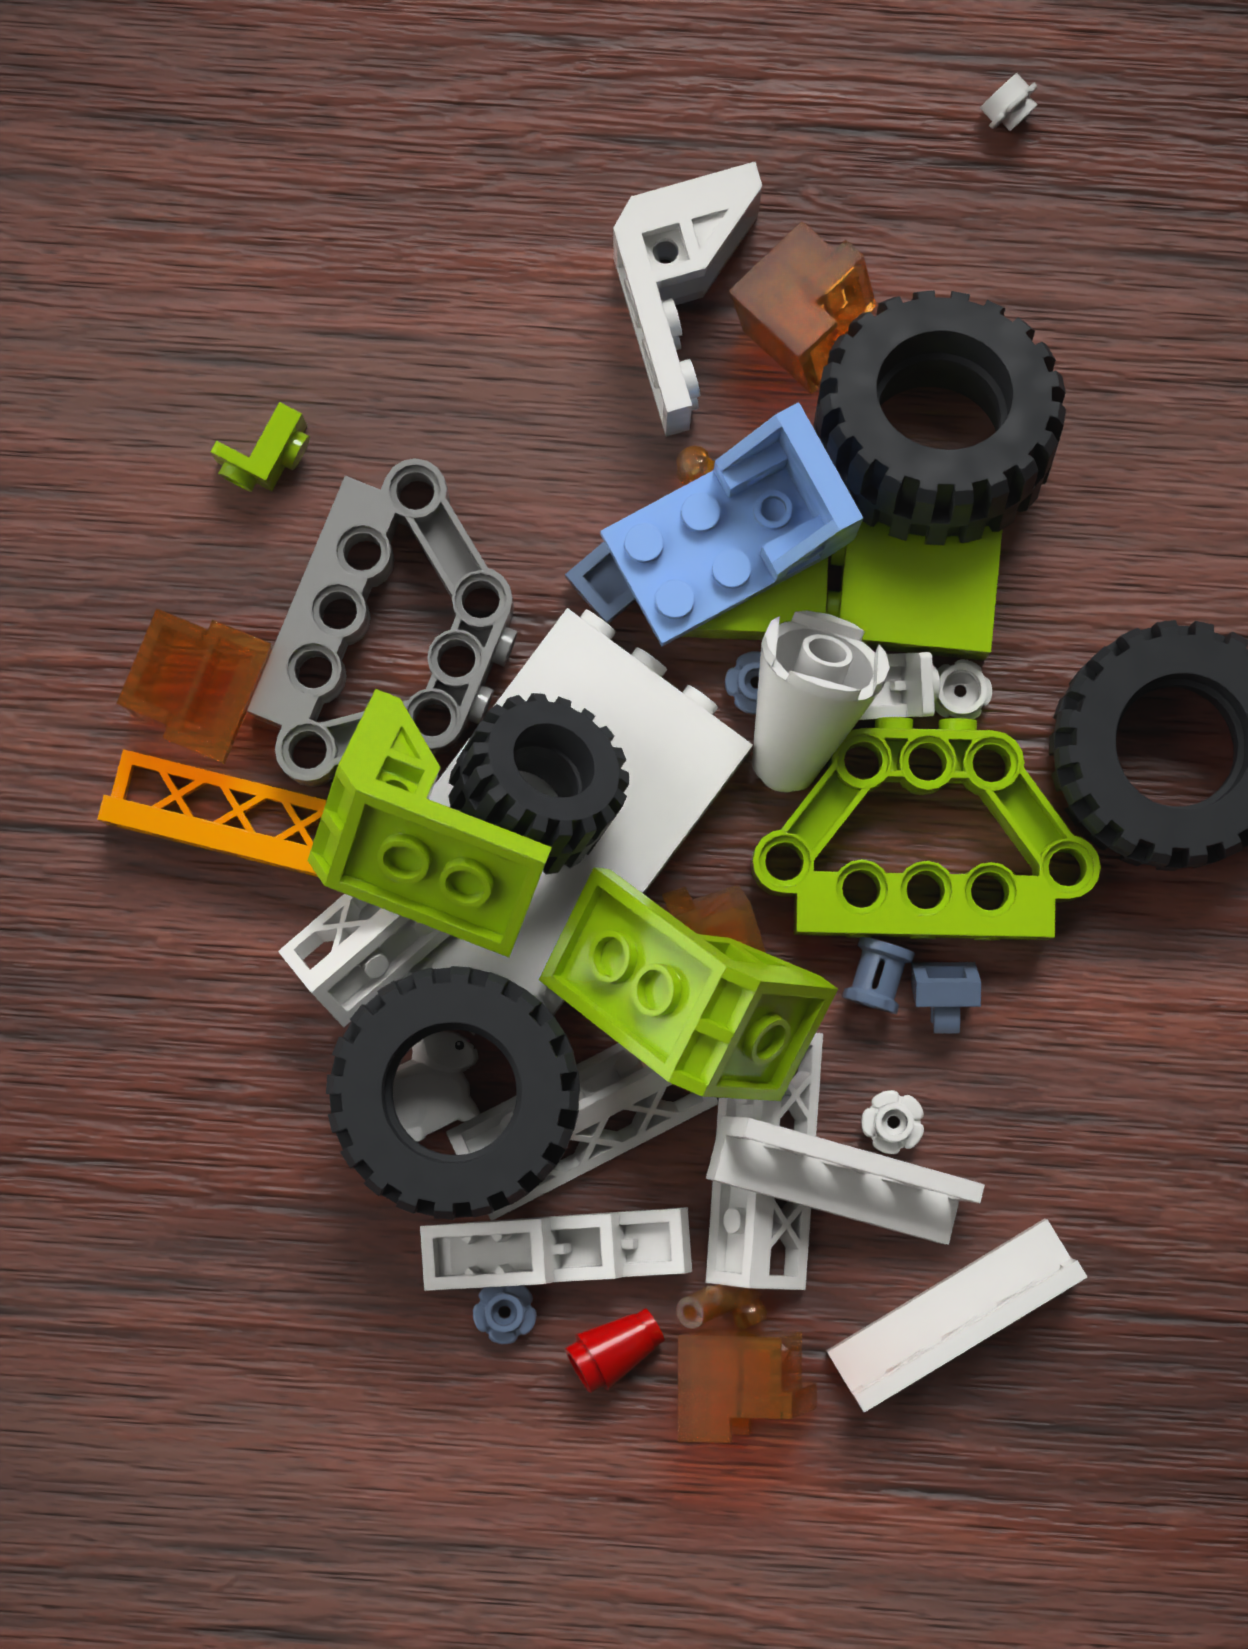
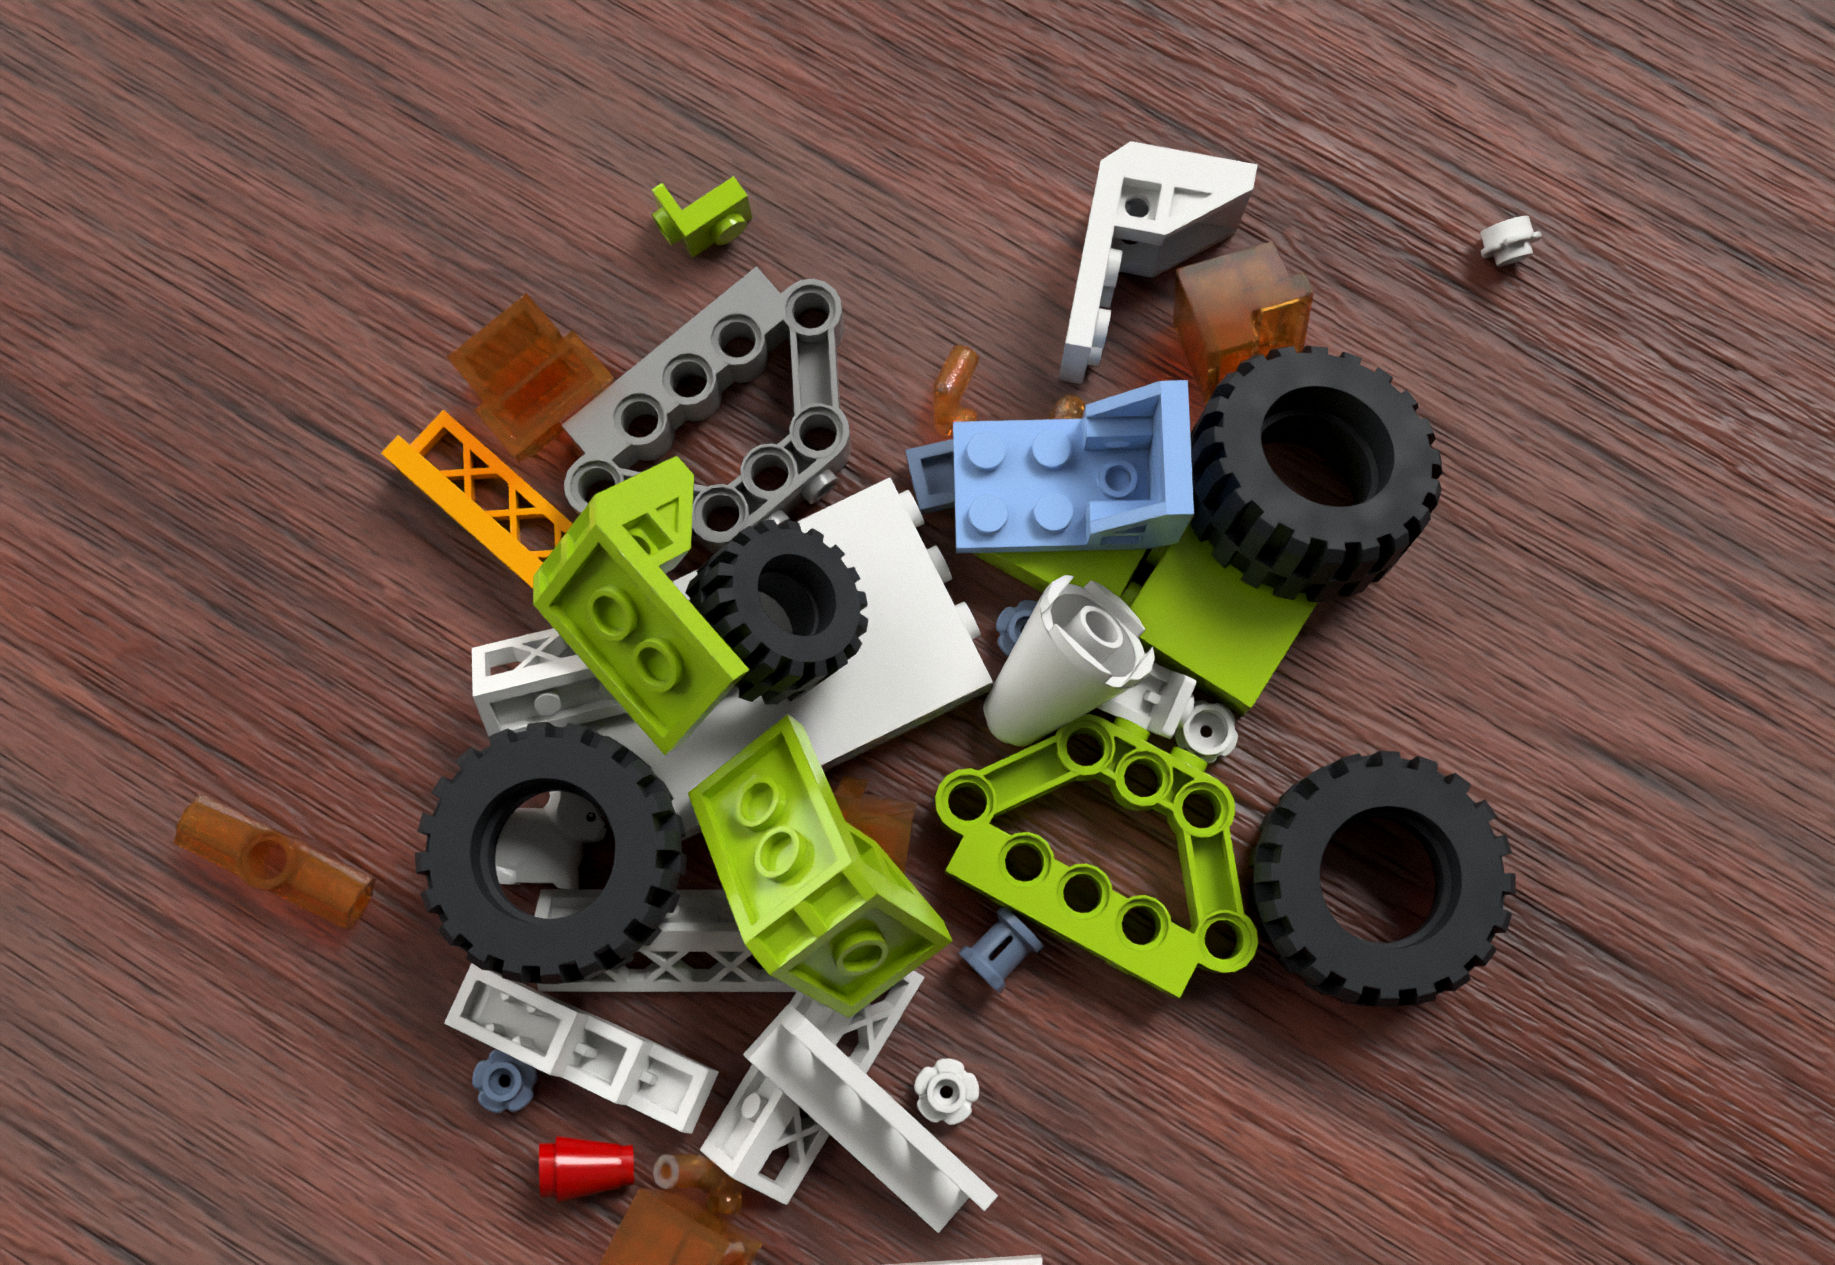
camera: 30 degrees right, 5 degrees down
(157, 1231) = (241, 845): none -> clear orange piece
(575, 497) = (949, 389): none -> clear orange arm
(945, 990) = (1055, 994): sand blue tile -> none

